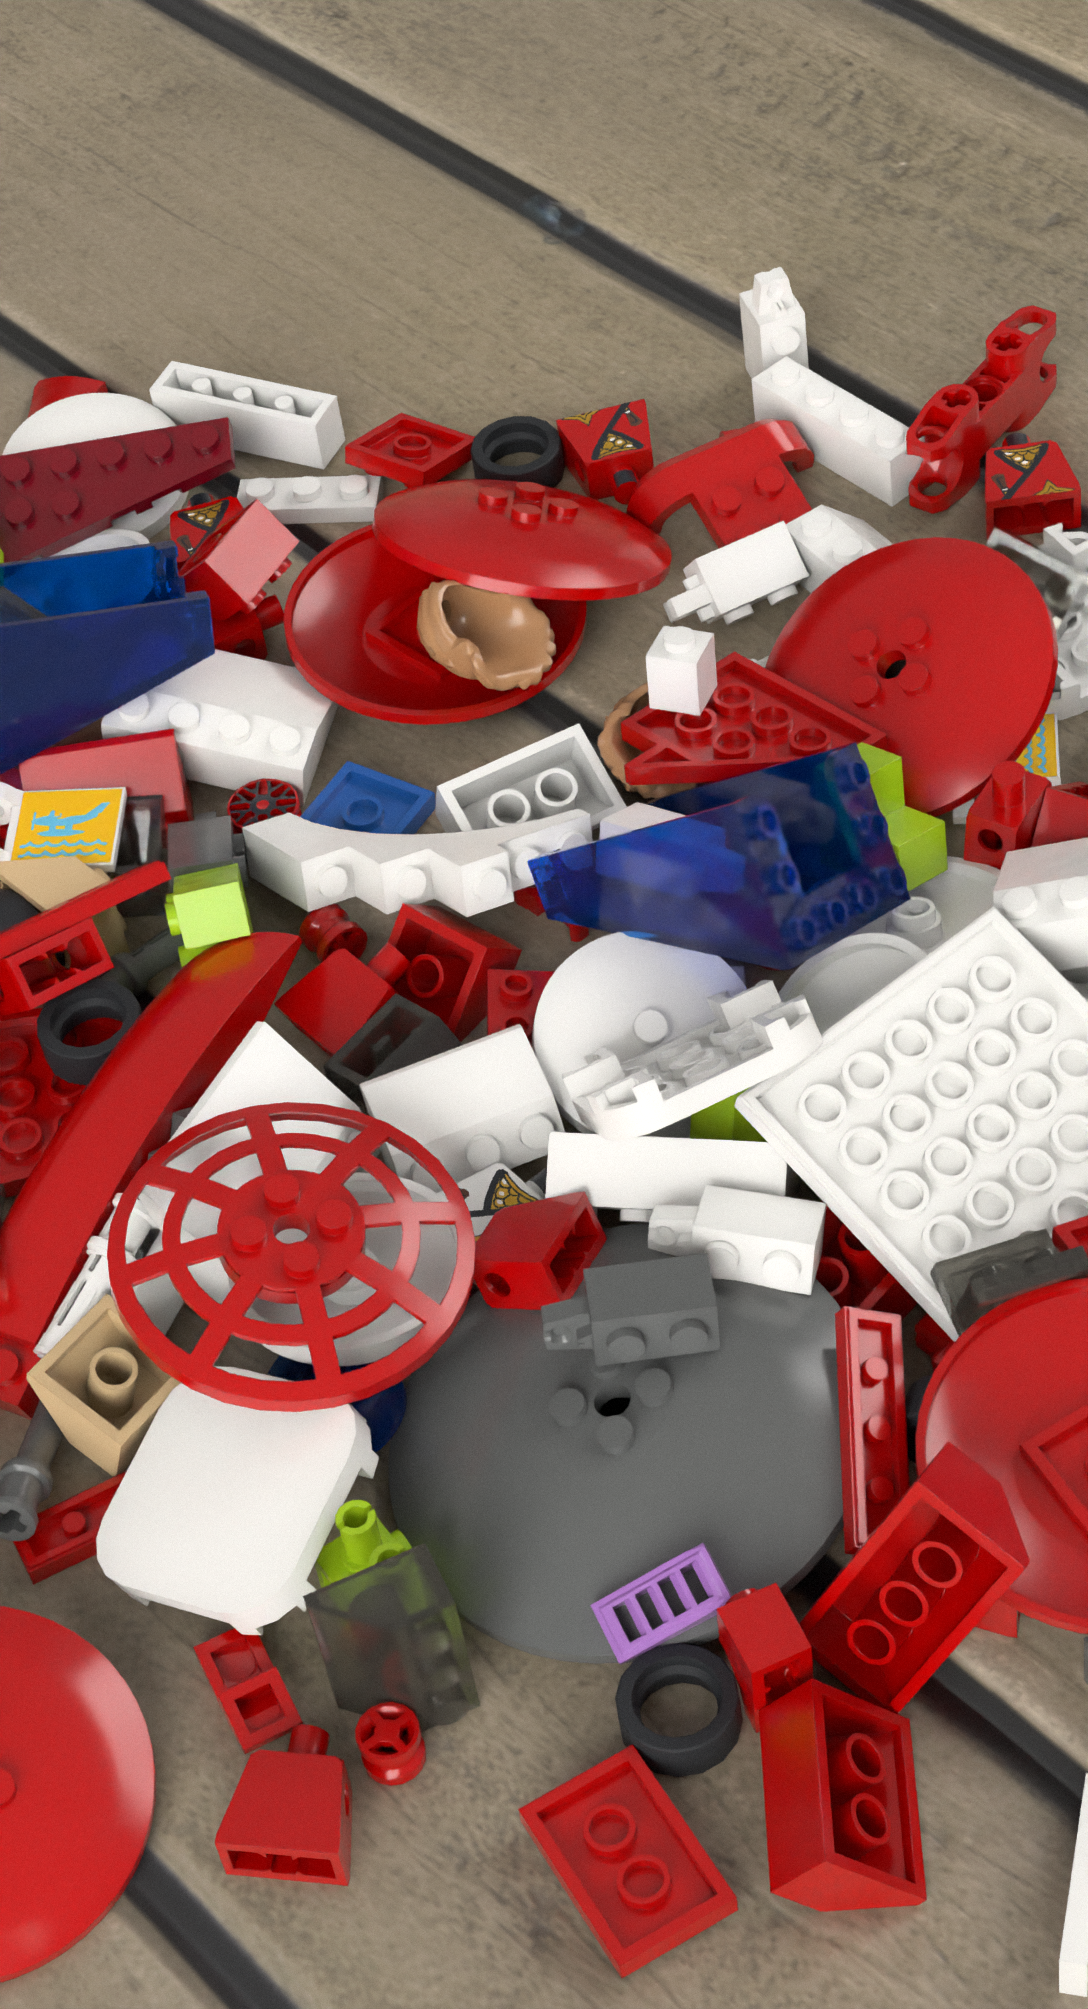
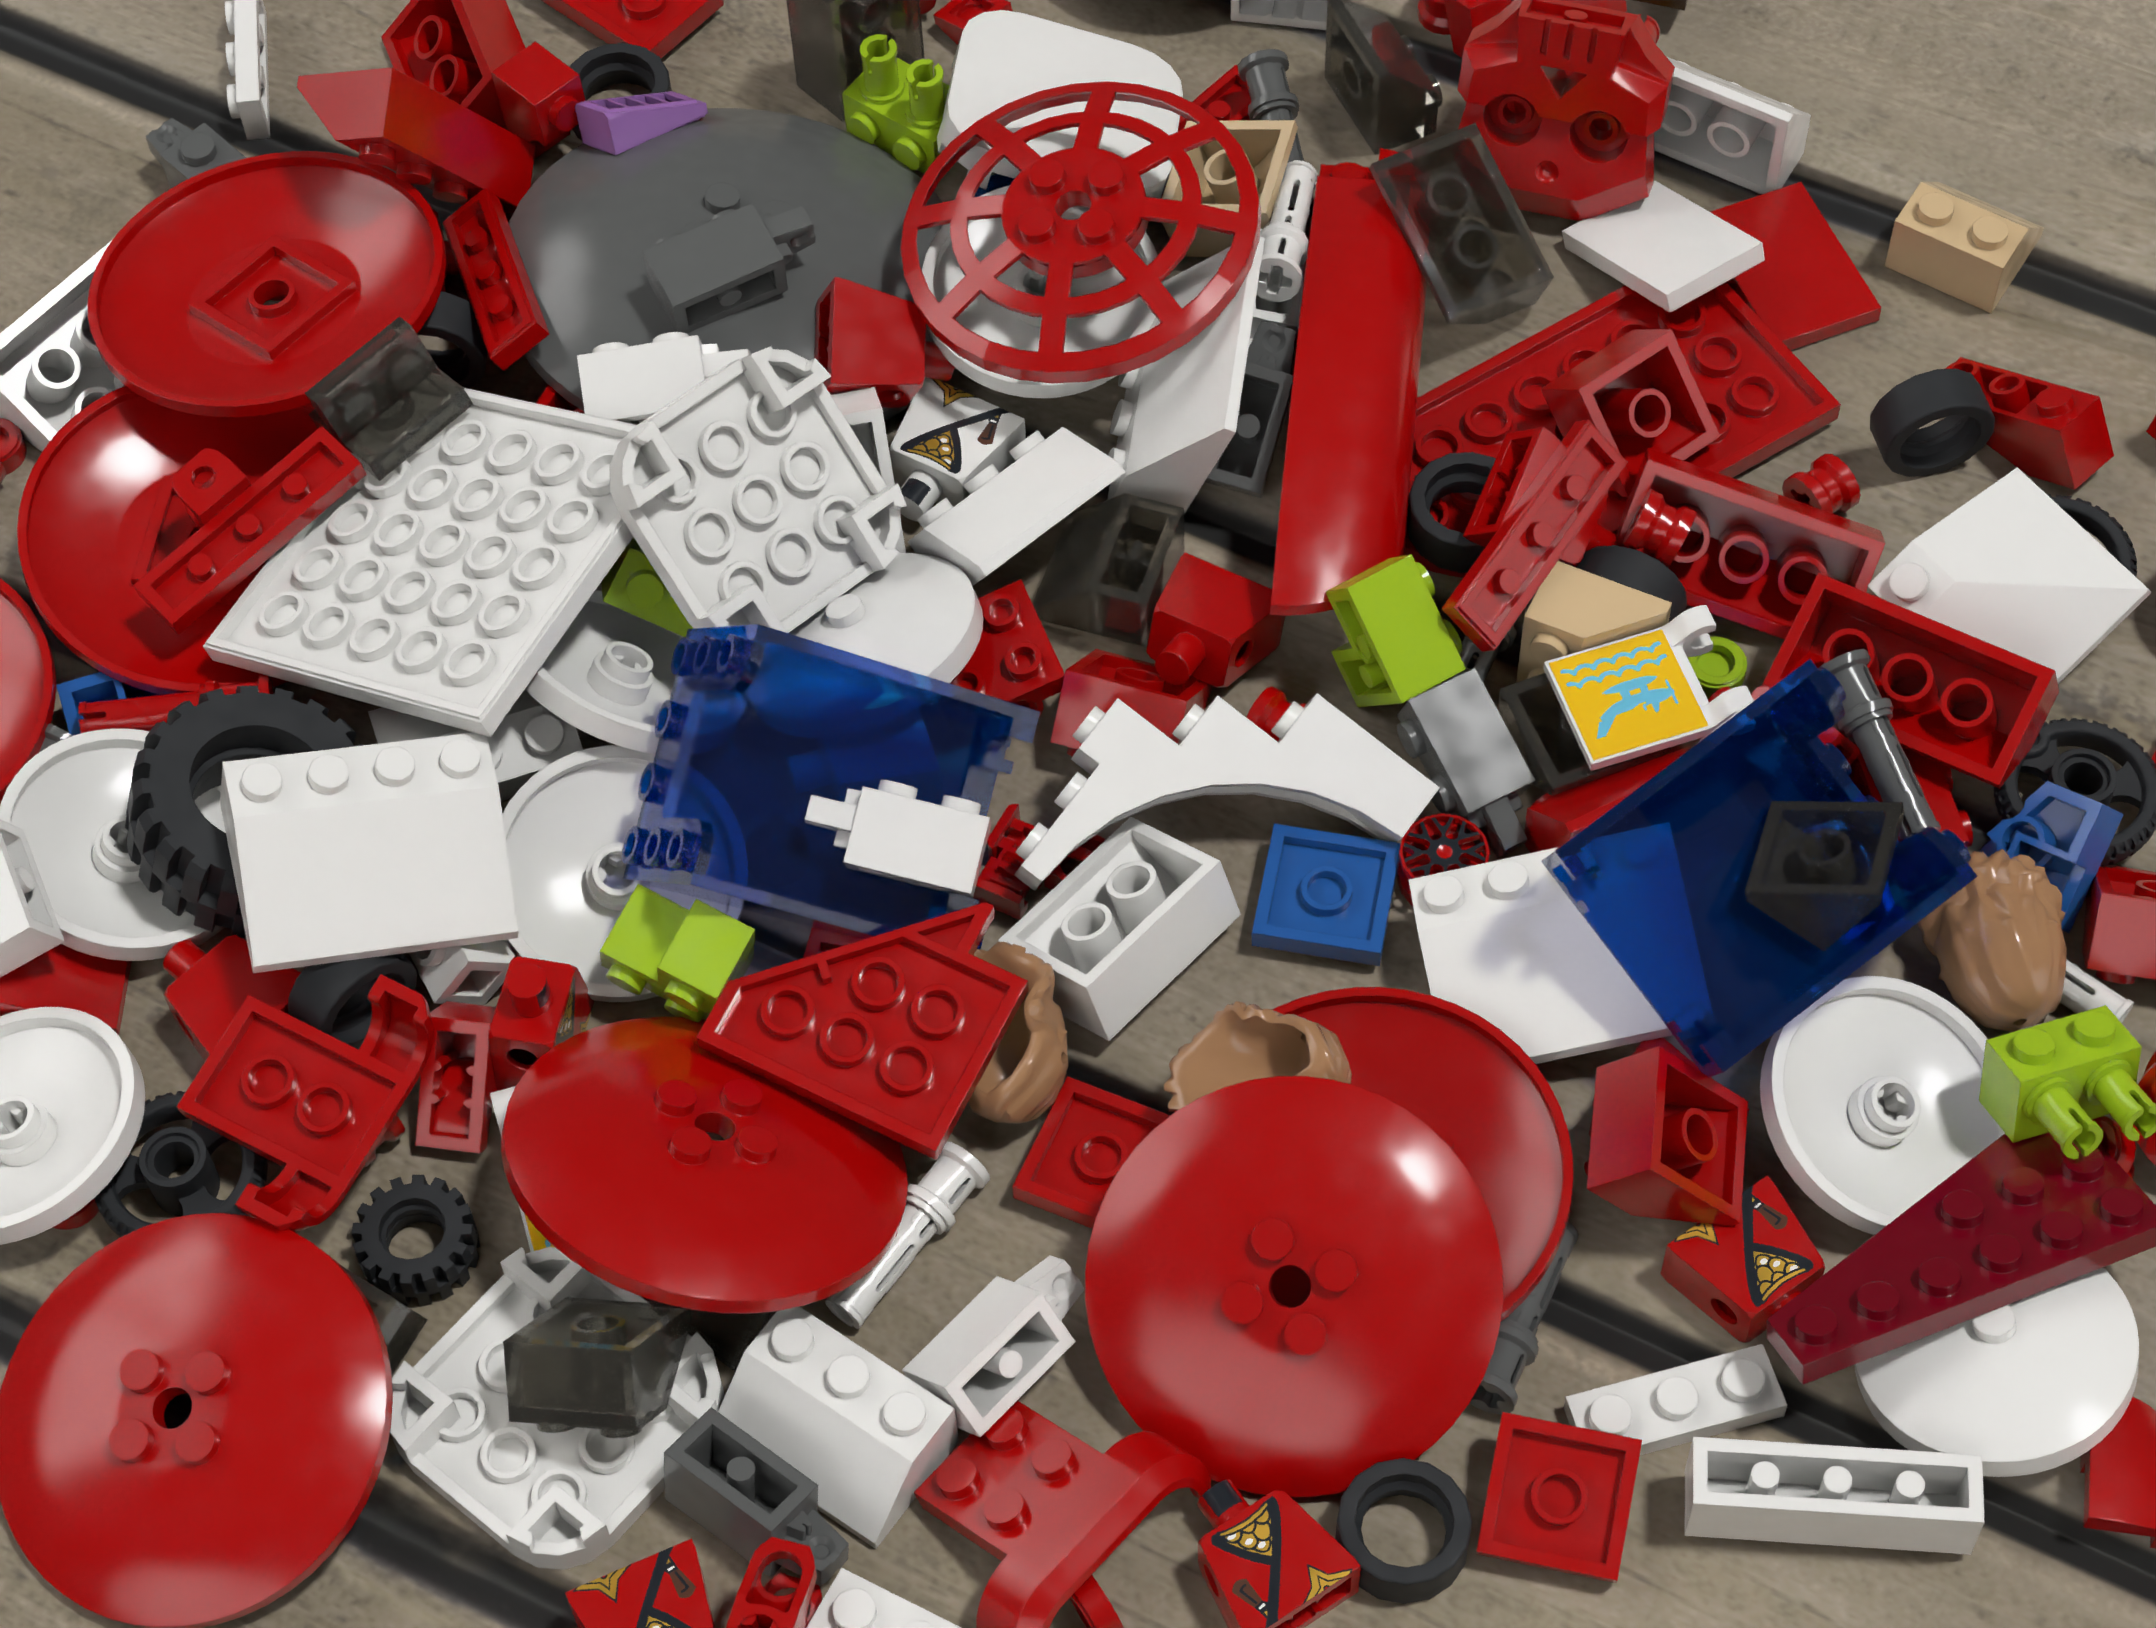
camera: 155 degrees right, 10 degrees up
(599, 679) = (1082, 1150): none -> red plate
(681, 670) = (966, 1032): white brick -> none
(931, 508) = (748, 1495): none -> dark grey hinge

